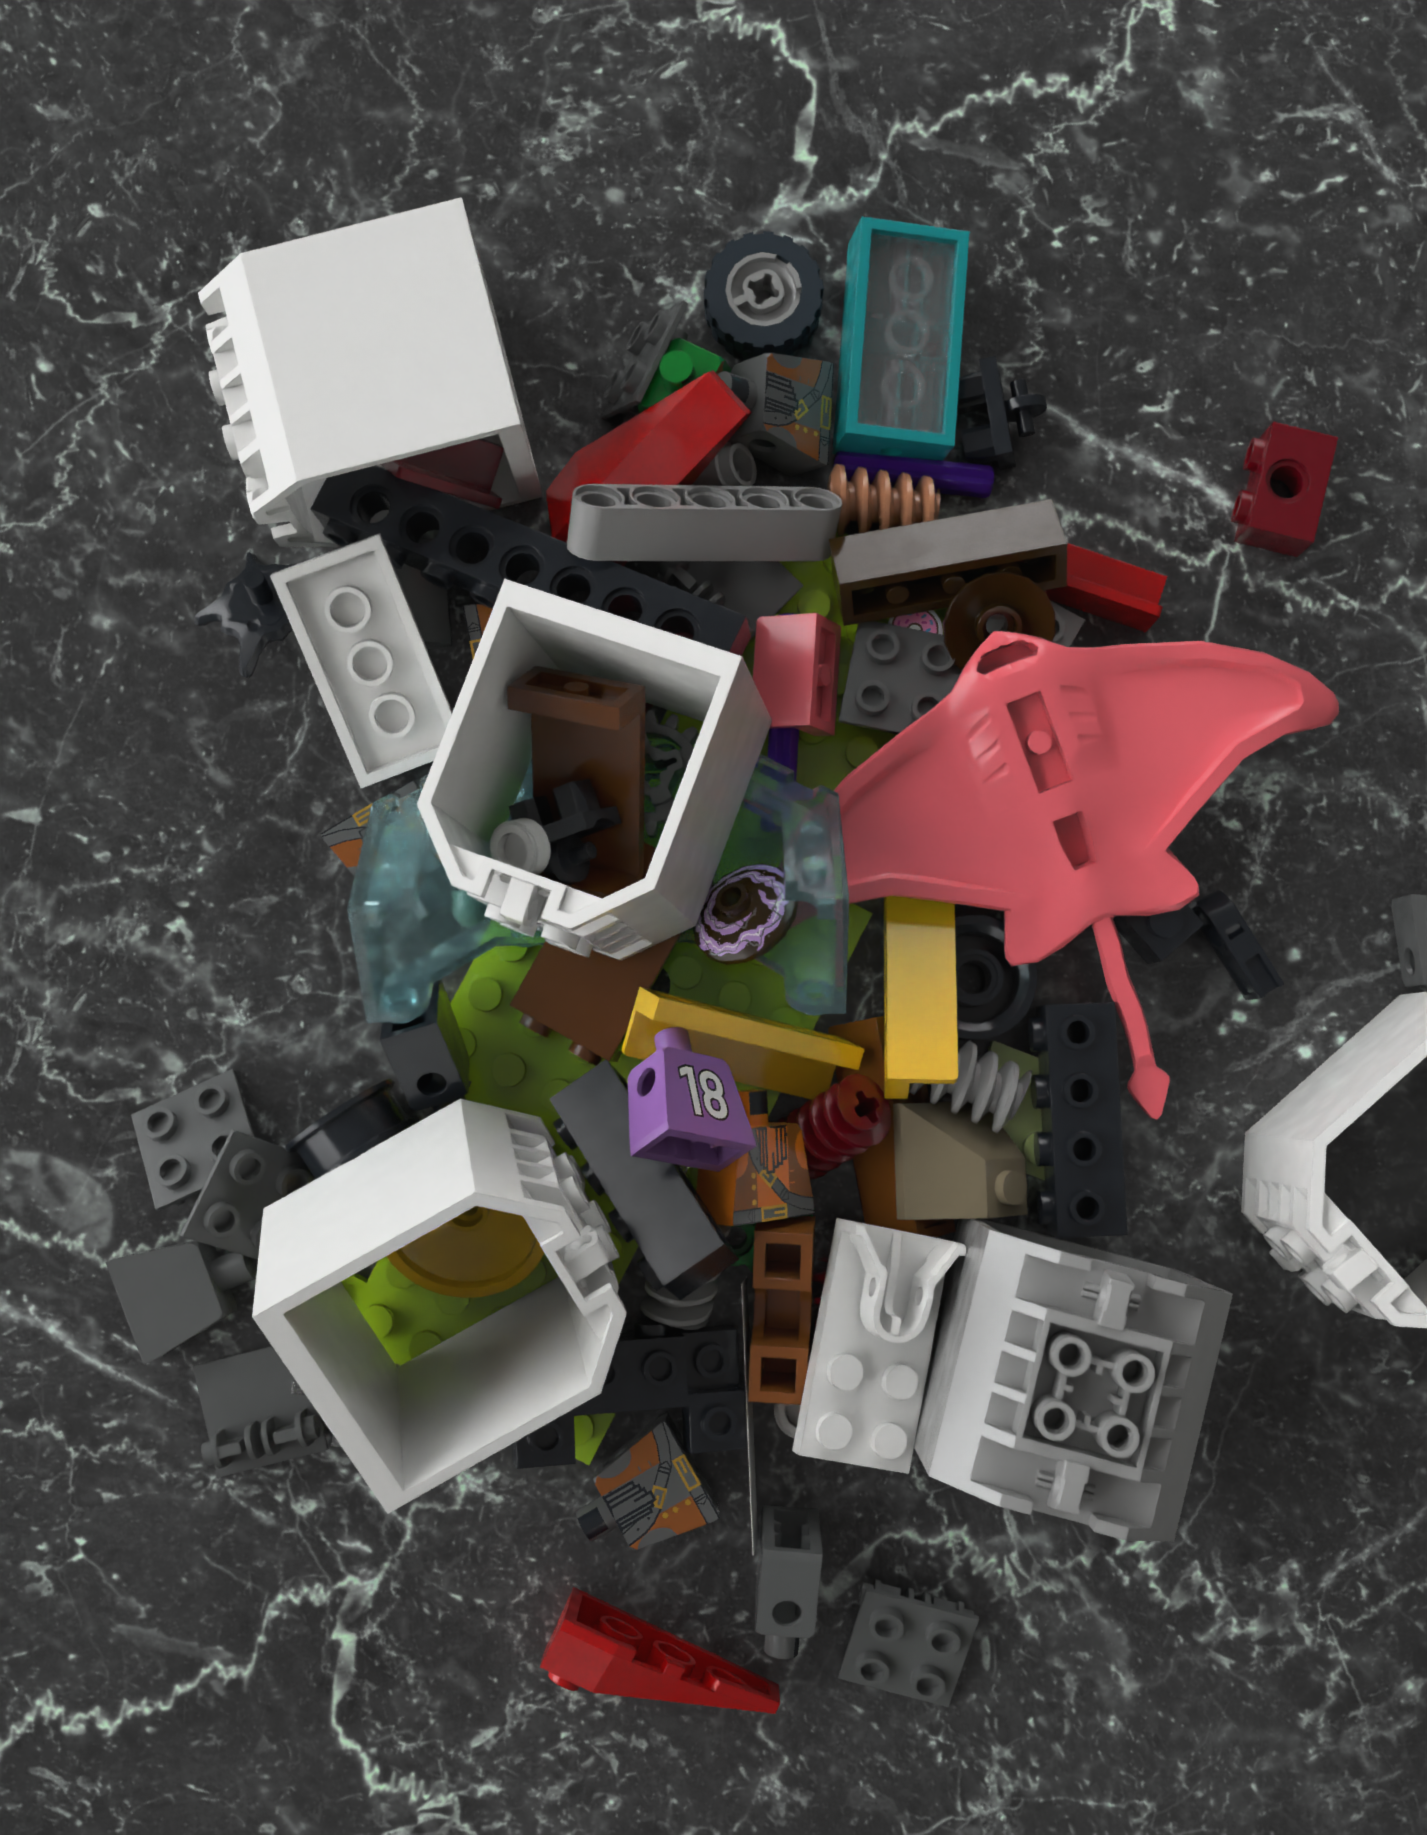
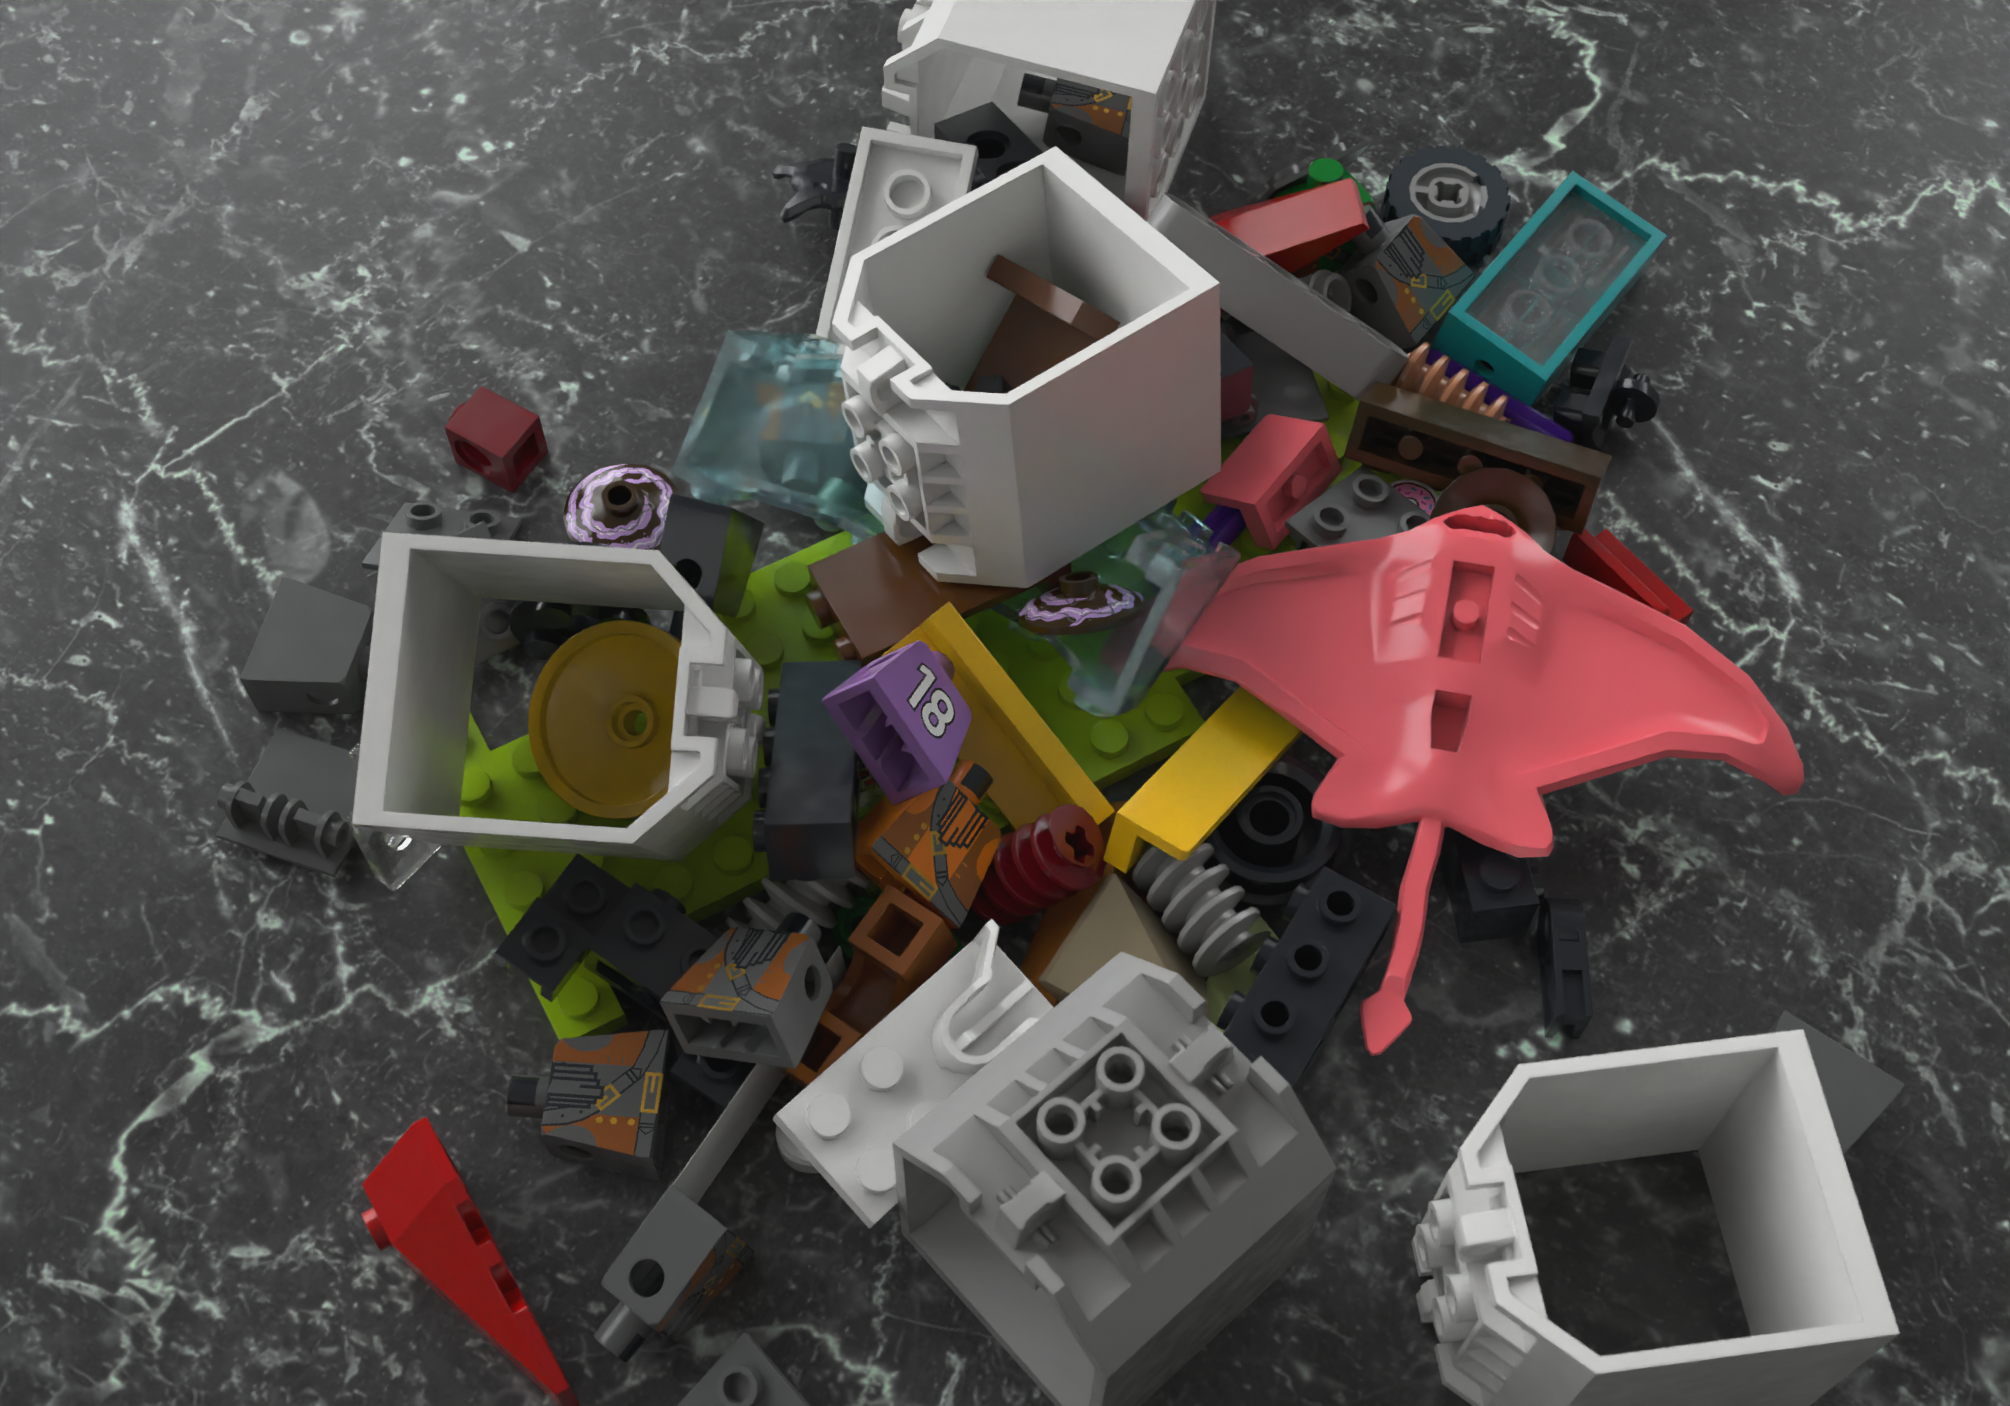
camera: 30 degrees right, 25 degrees down
(162, 1022) = (496, 438): none -> dark red brick
(334, 1015) = (635, 525): none -> dish
(459, 470) = (1065, 128): dark red panel -> none
(721, 1375) = (753, 995): none -> dark grey torso
(1303, 464) = (1858, 600): dark red brick -> none

